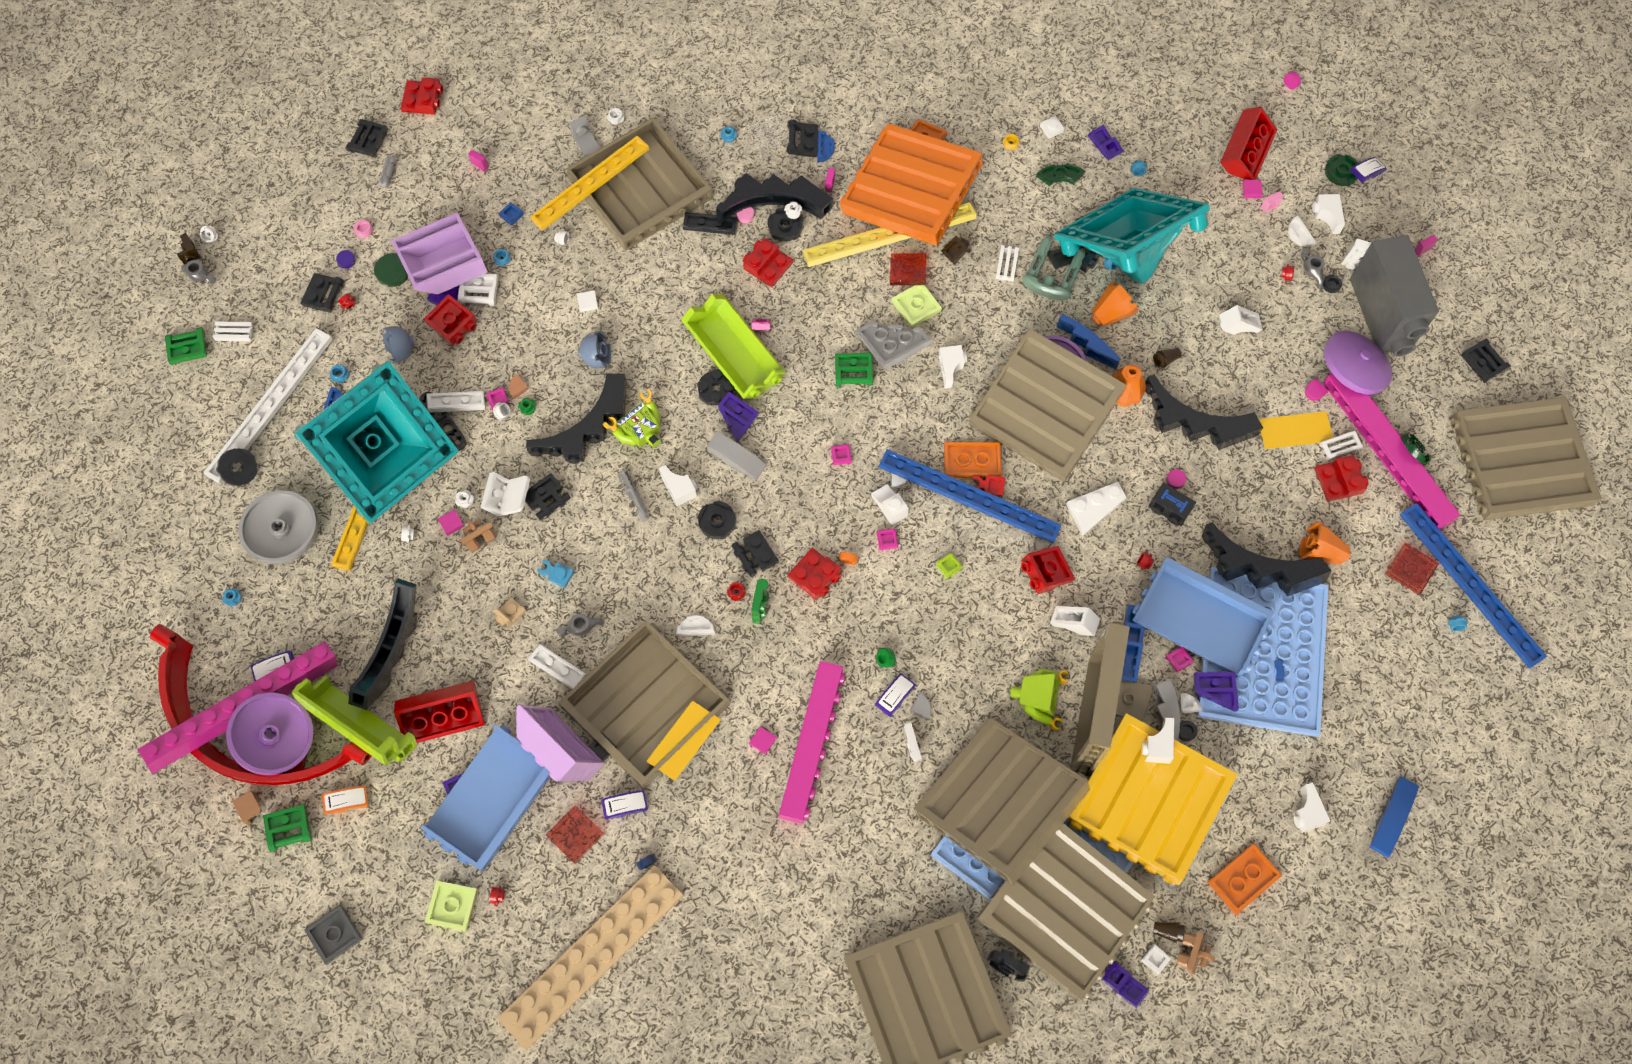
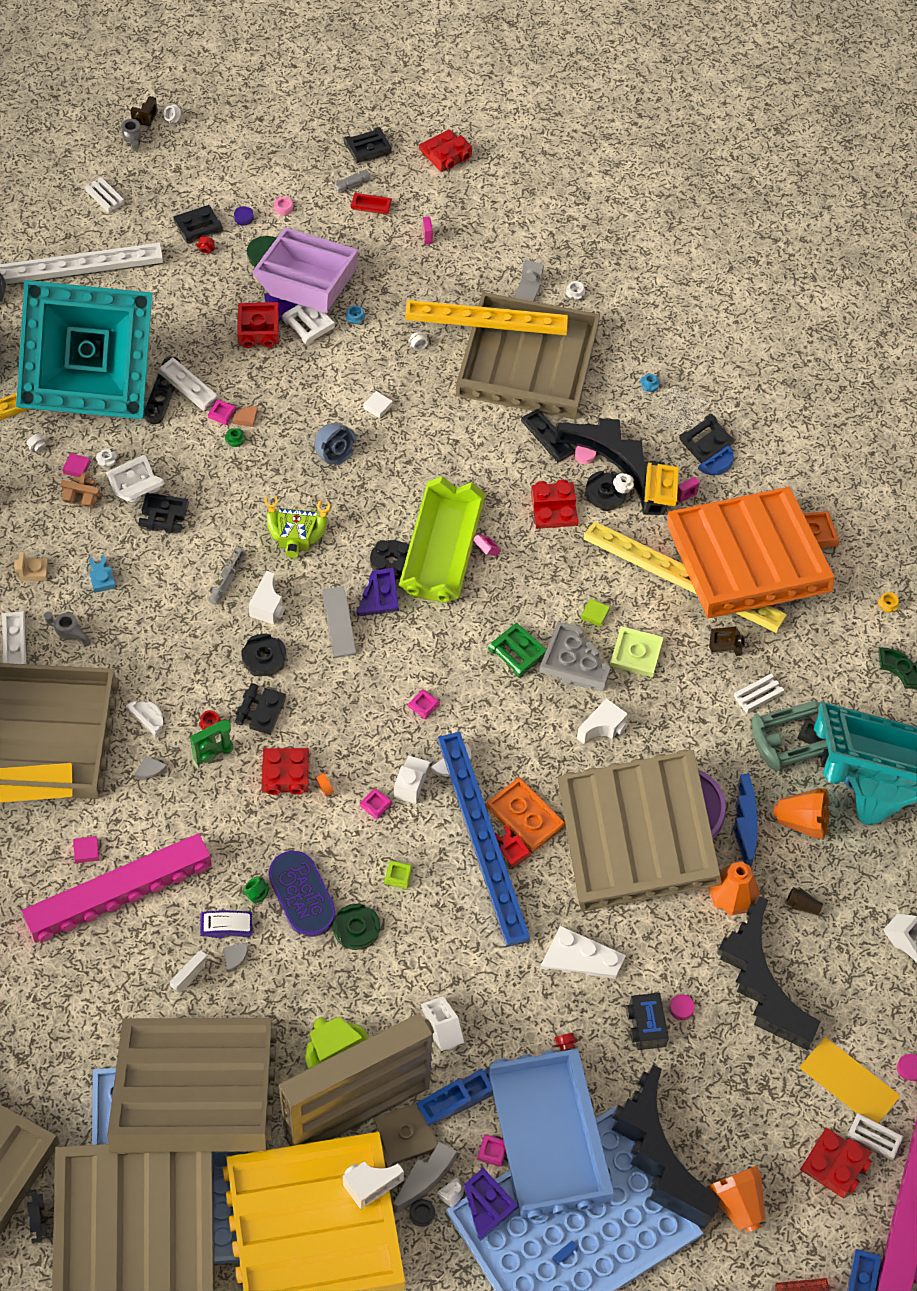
camera: 45 degrees right, 10 degrees down
(186, 350) = (58, 179): green plate -> none
(335, 370) = (136, 285): dark azure plate -> none
(398, 343) = (199, 305): sand blue cylinder -> none
(418, 175) = (371, 203): none -> red tile
(501, 411) = (216, 424): white plate -> none
(511, 214) = (403, 290): blue tile -> none
(591, 429) = (233, 493): black arch -> none
(737, 655) = (150, 768): none -> light grey tile
(819, 189) = (661, 484): none -> yellow plate
(867, 304) = (595, 612): none -> lime tile
(908, 269) = (664, 617): clear red tile -> none
(912, 632) = (302, 893): none -> tile
(960, 623) = (356, 926): none -> dark green tile
(1047, 569) = (471, 959): red plate -> none

